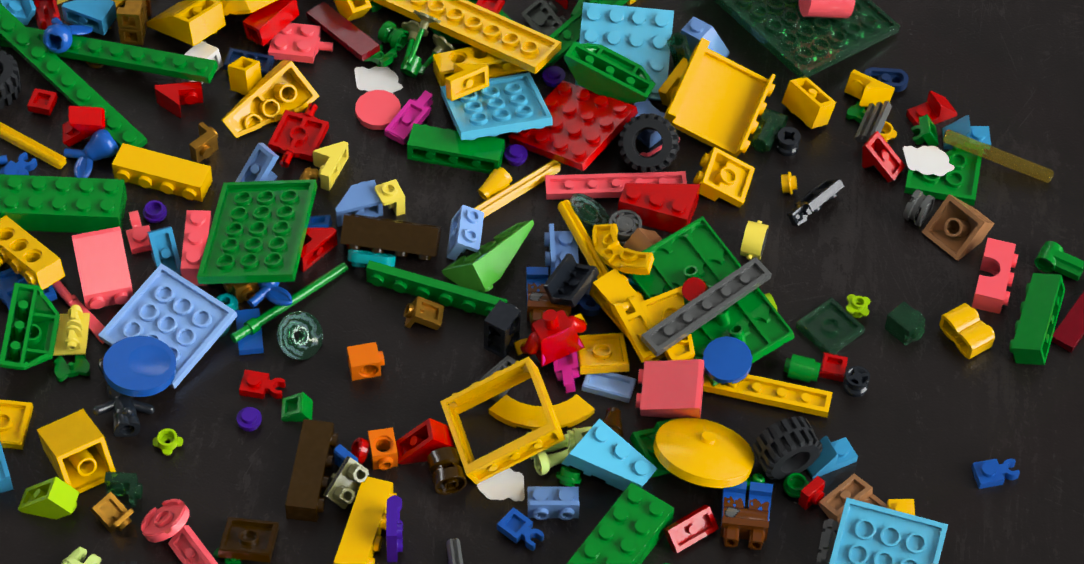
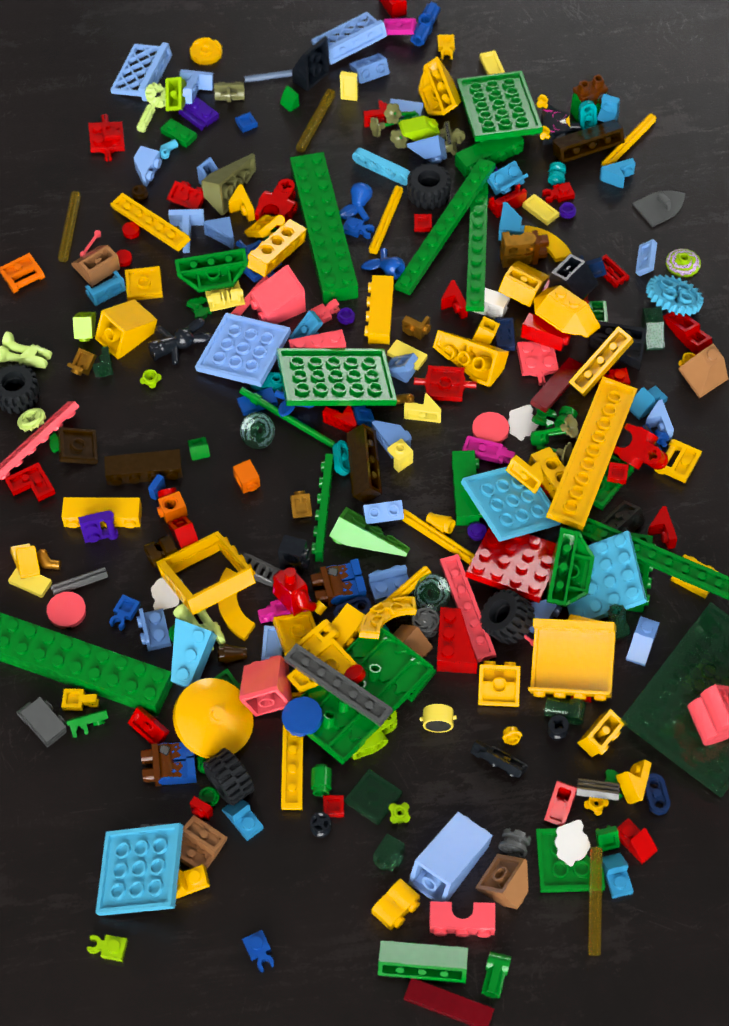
camera: 80 degrees right, 5 degrees up
(59, 37) = (472, 208): blue piece -> none
(82, 123) = (404, 247): red slope -> none
(139, 366) = (198, 340): blue piece -> none
(165, 521) = (80, 392): coral tile -> none
(232, 166) = (400, 348): none -> light yellow tile
(249, 419) = (181, 420): dark purple plate -> none
(257, 384) = (212, 420): red plate -> none
(346, 482) = (133, 489): olive hips -> none
(569, 282) = (344, 587): black bracket -> none
(926, 268) = (449, 858): none -> light blue slope

